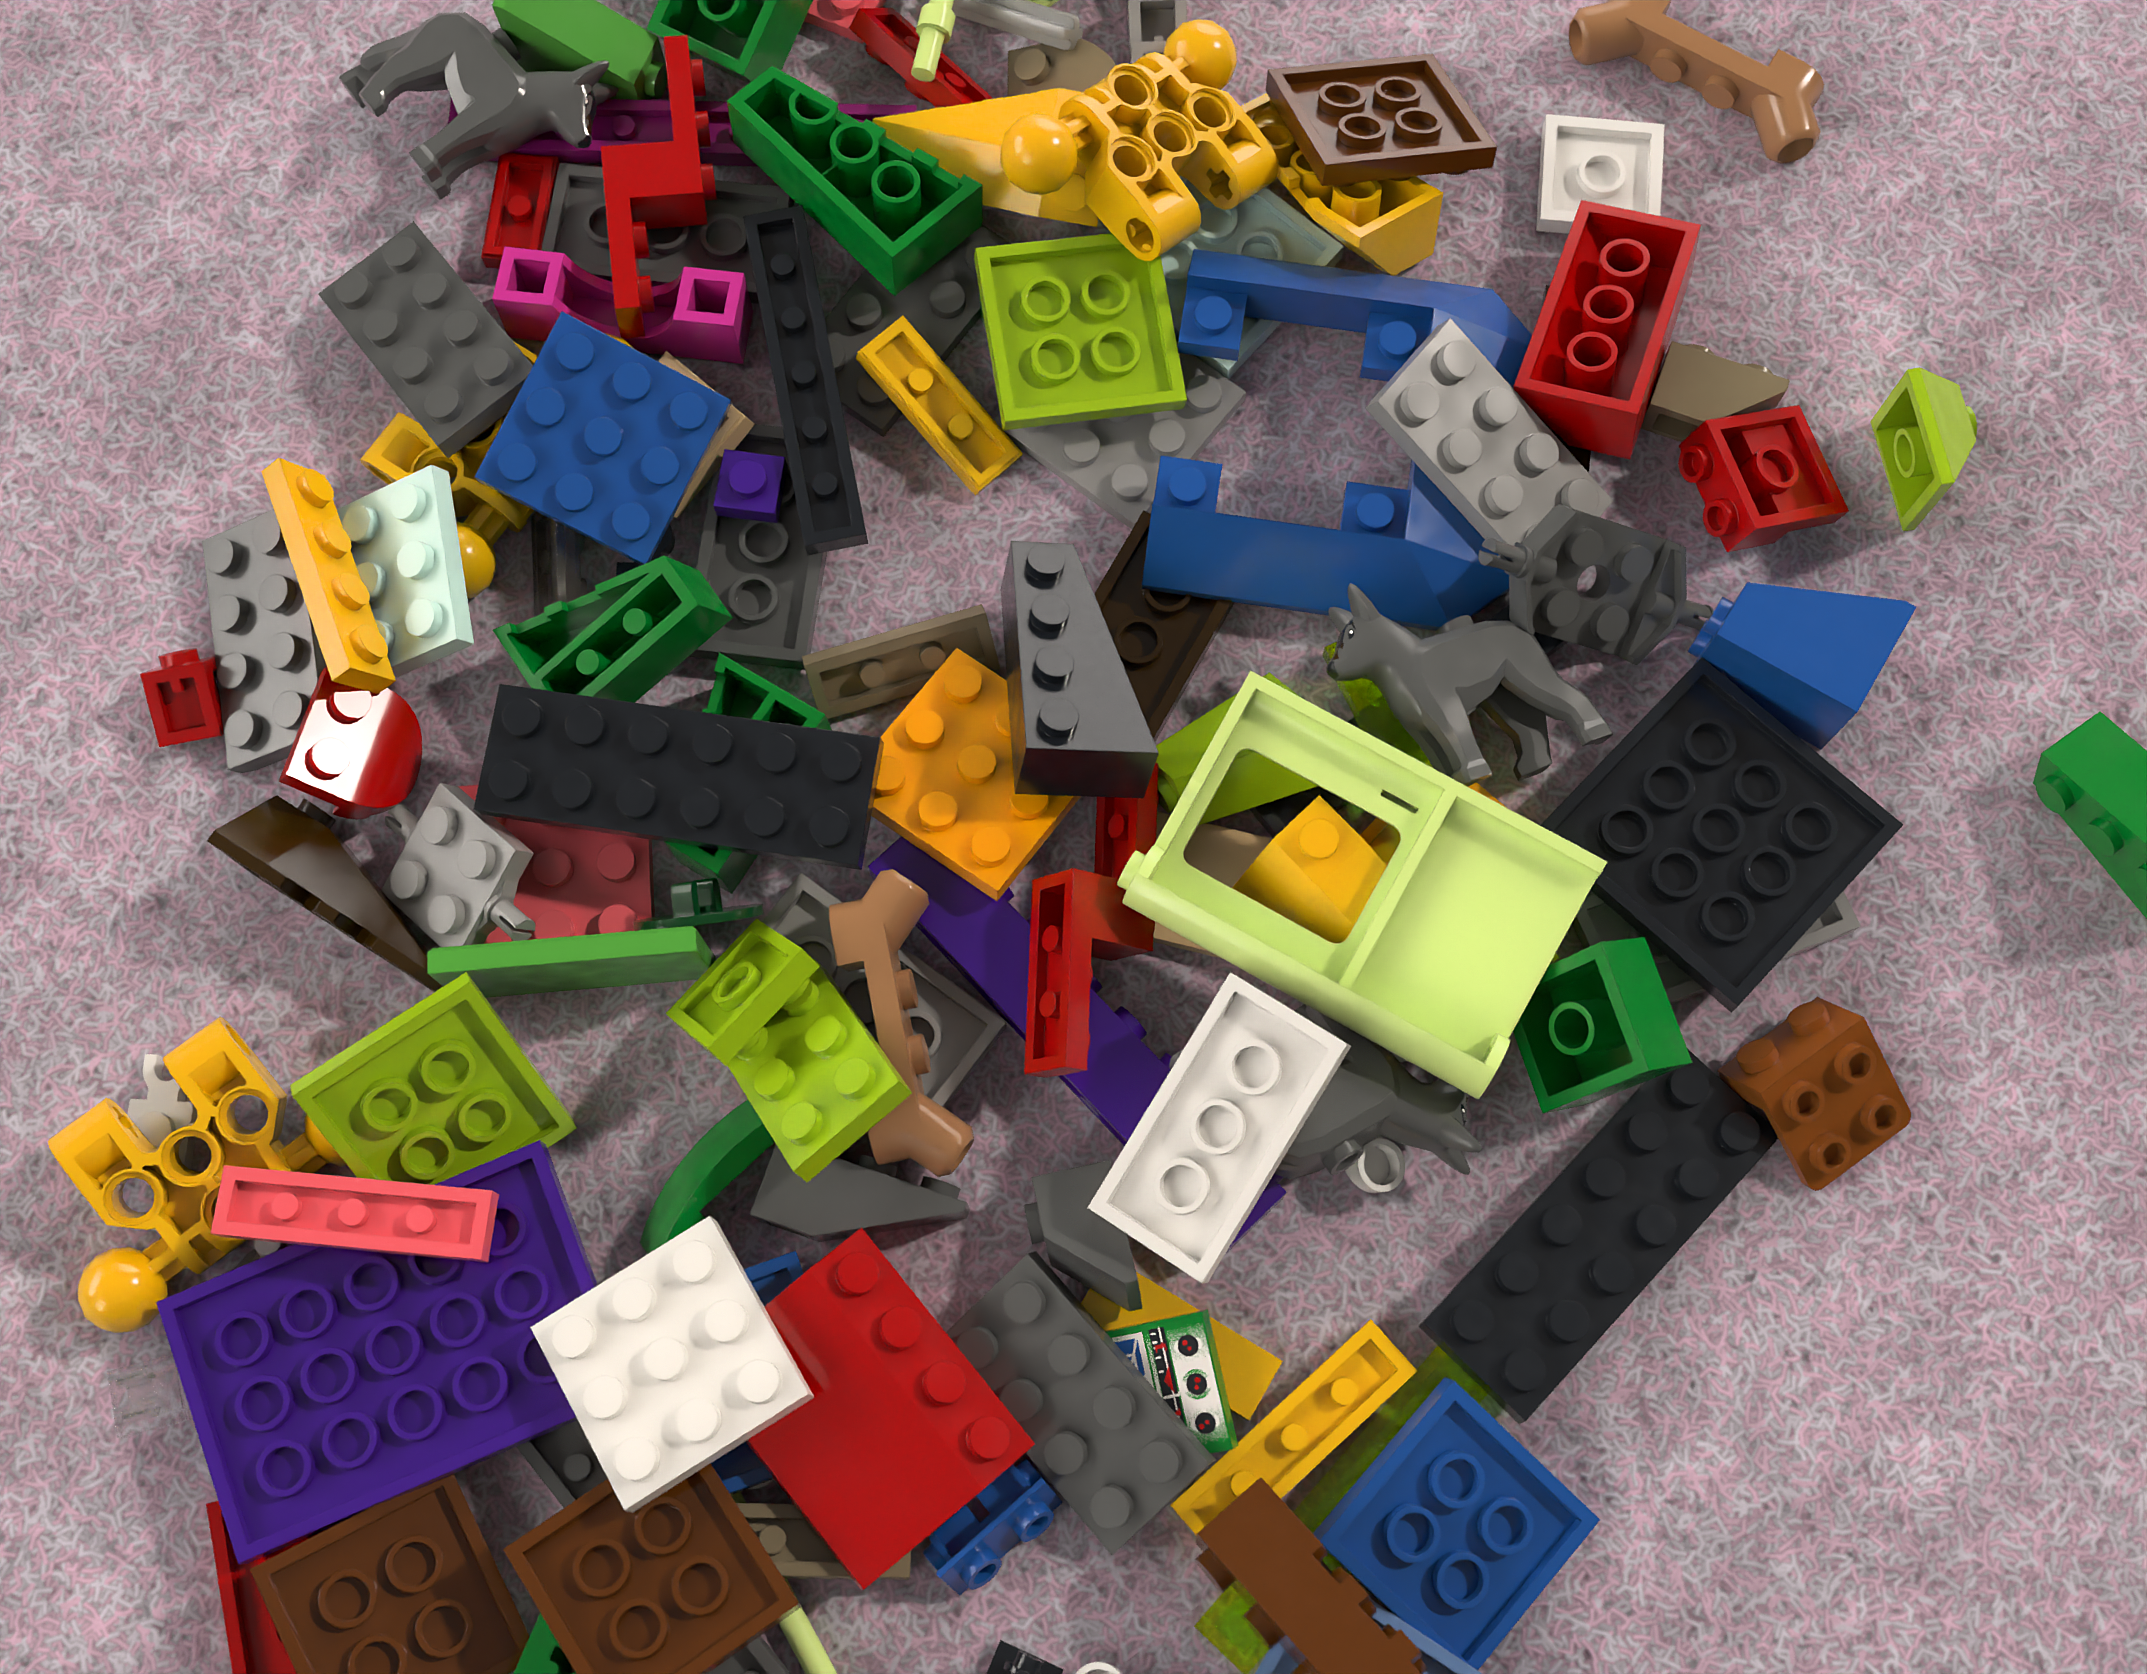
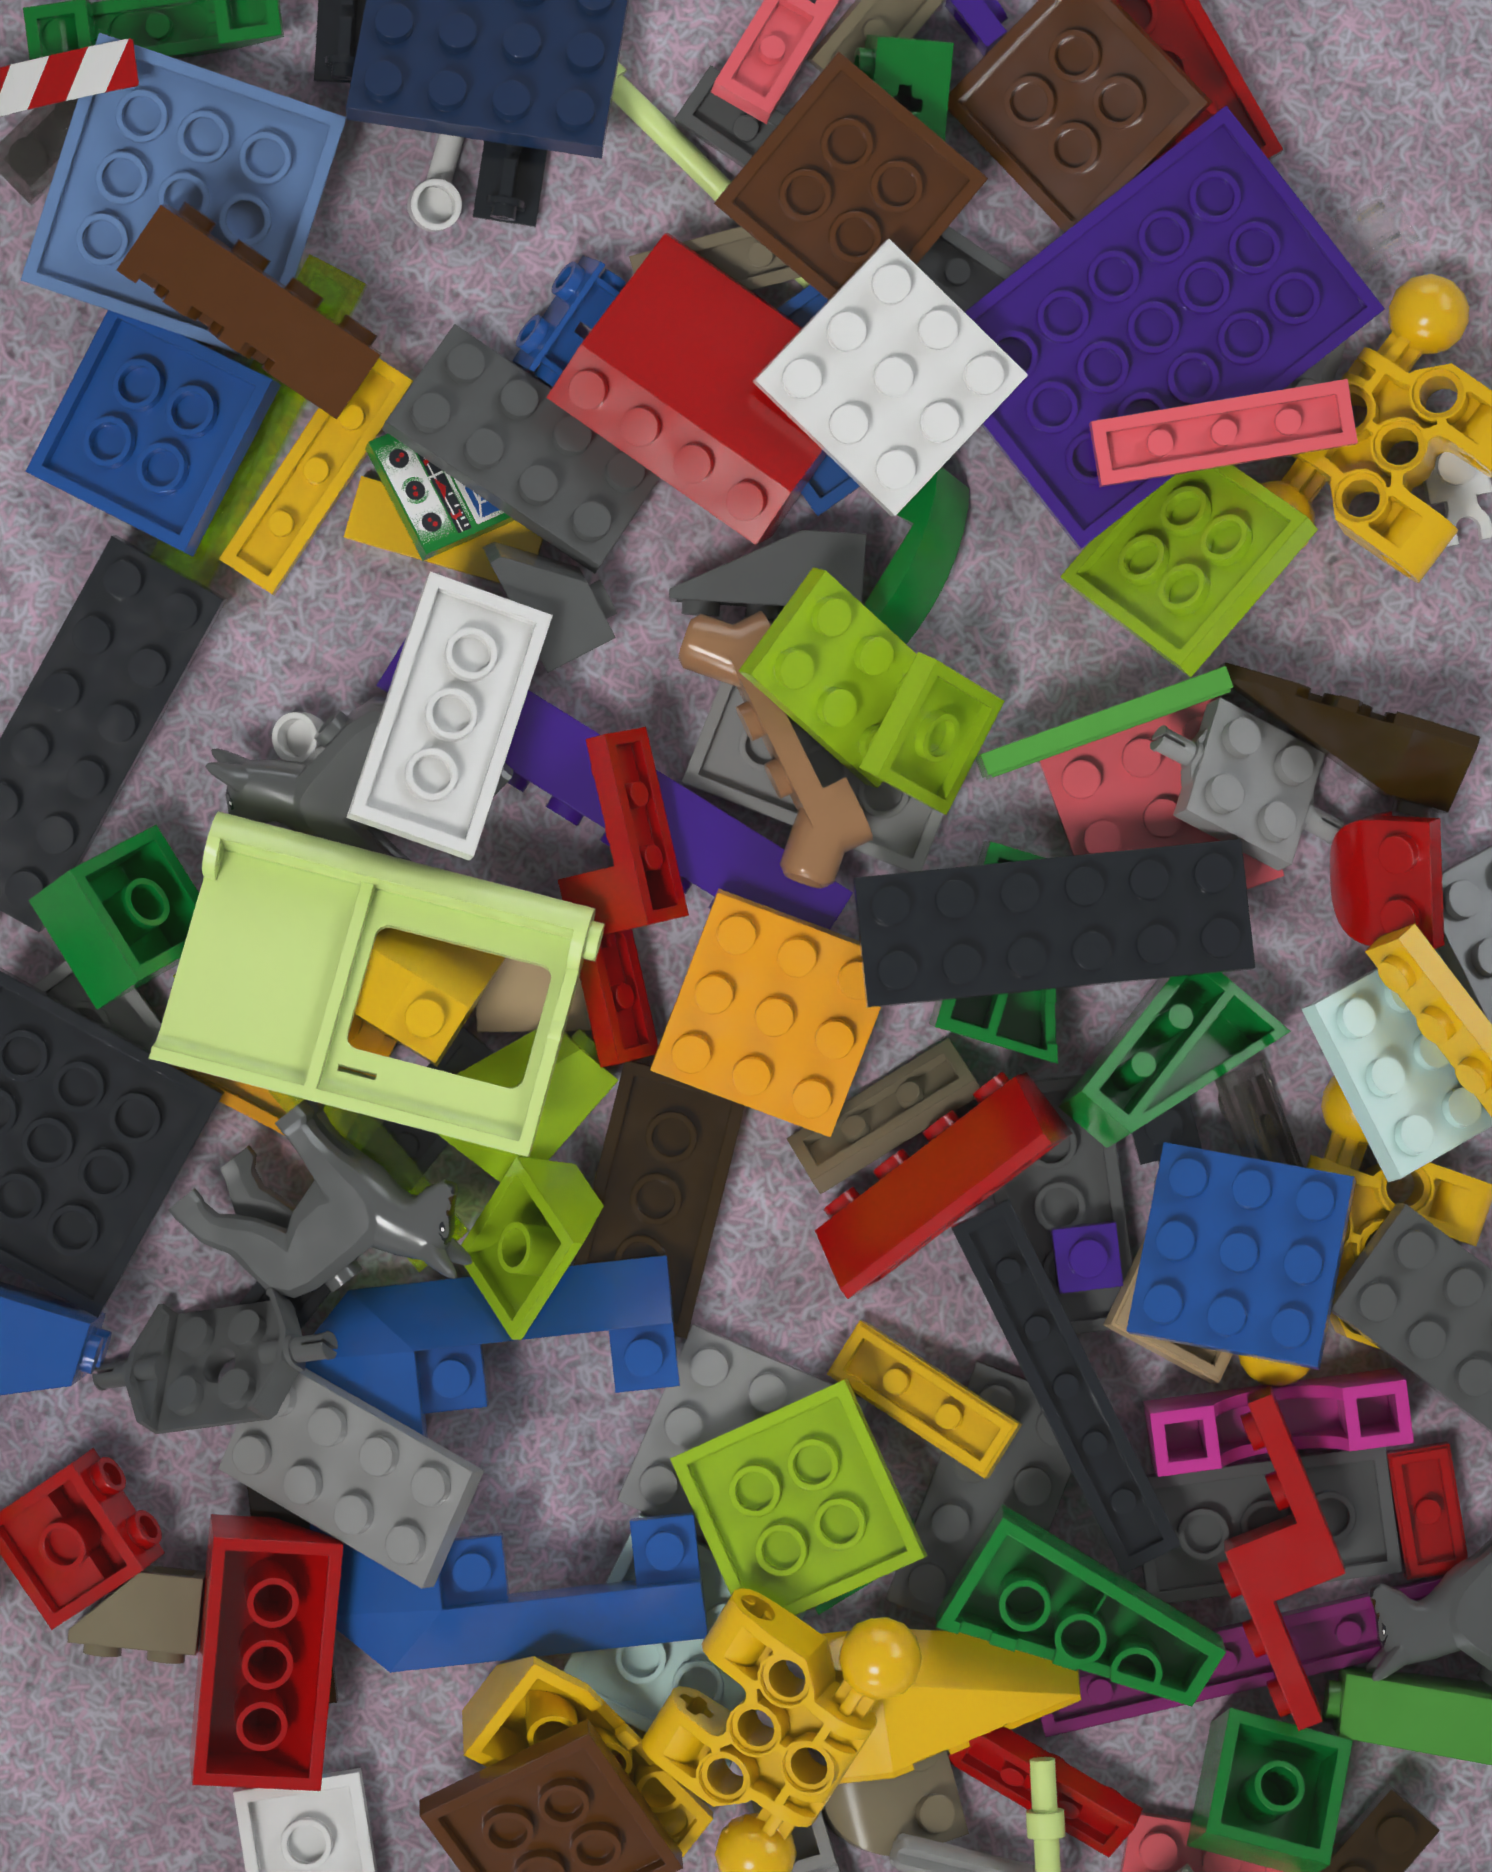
camera: 160 degrees right, 15 degrees up
(698, 904) = (1001, 803): dark green piece -> none
(863, 572) = (940, 1182): none -> red slope
(1067, 689) = (706, 1110): wedge -> none
(1265, 616) = (529, 1237): none -> lime slope

